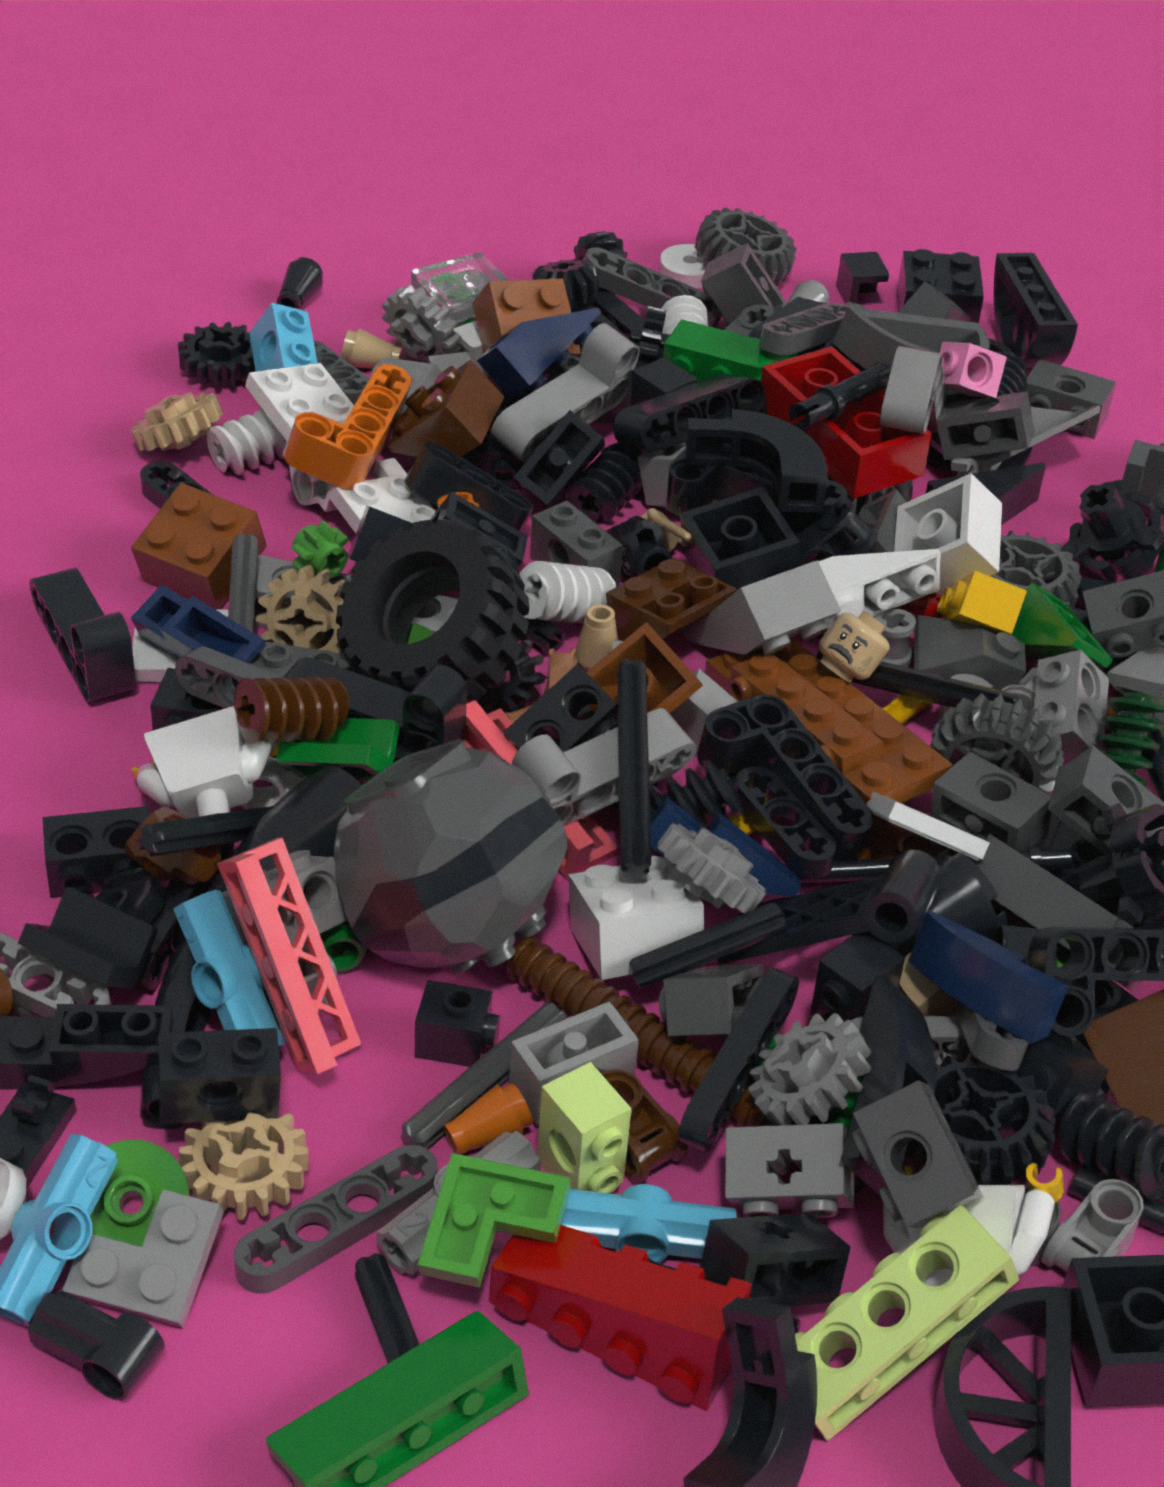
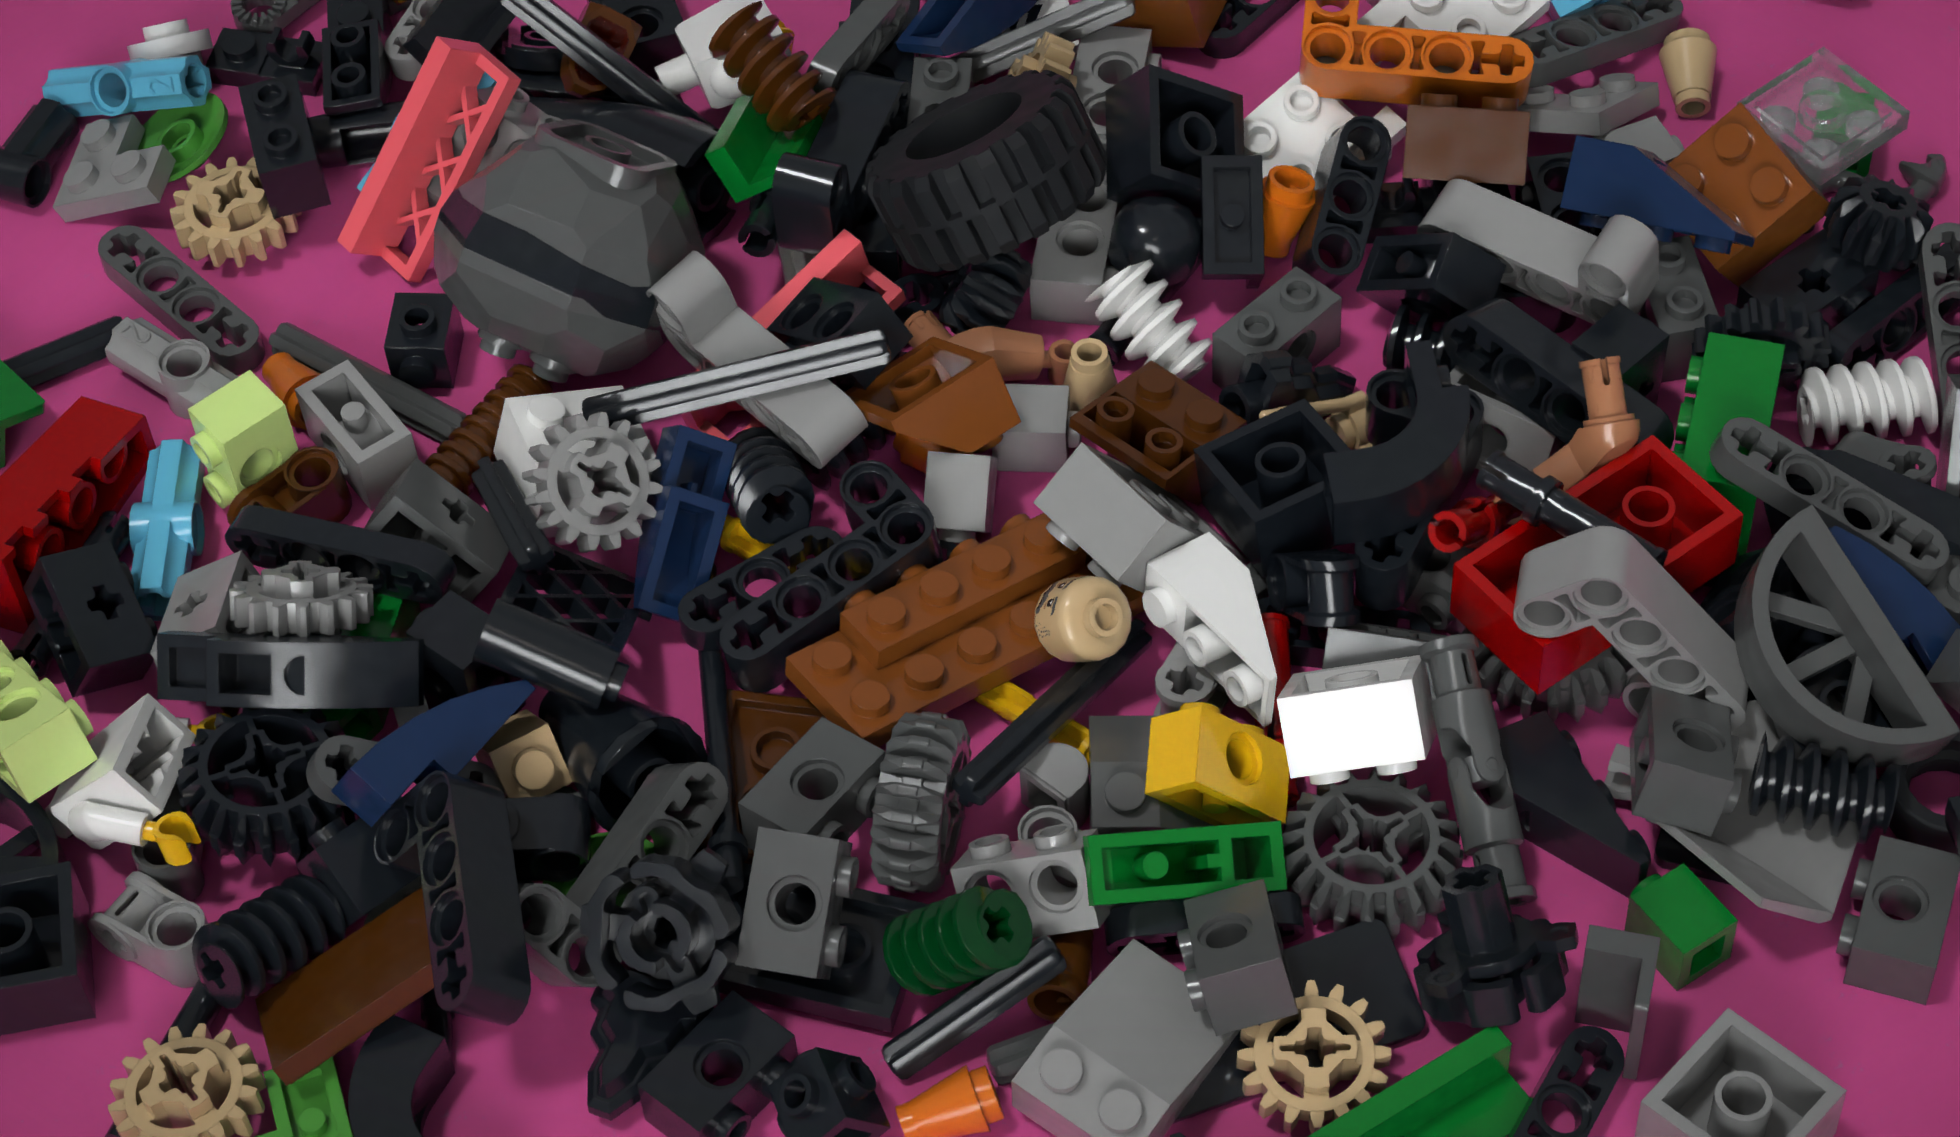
camera: 90 degrees right, 10 degrees up
(321, 549) = (1125, 56): bright green gear -> none
(420, 324) = (1716, 82): light grey gear -> none
(484, 1199) = (124, 367): bright green plate -> none
(761, 379) = (1604, 436): none -> nougat arm
(927, 826) = (733, 704): white tile -> none
(946, 1177) = (130, 666): dark grey brick -> none
(972, 369) = (1738, 710): bright pink brick -> none
(1017, 512) = (1475, 762): none -> dark grey piece
(1072, 470) = (1688, 918): none -> green brick

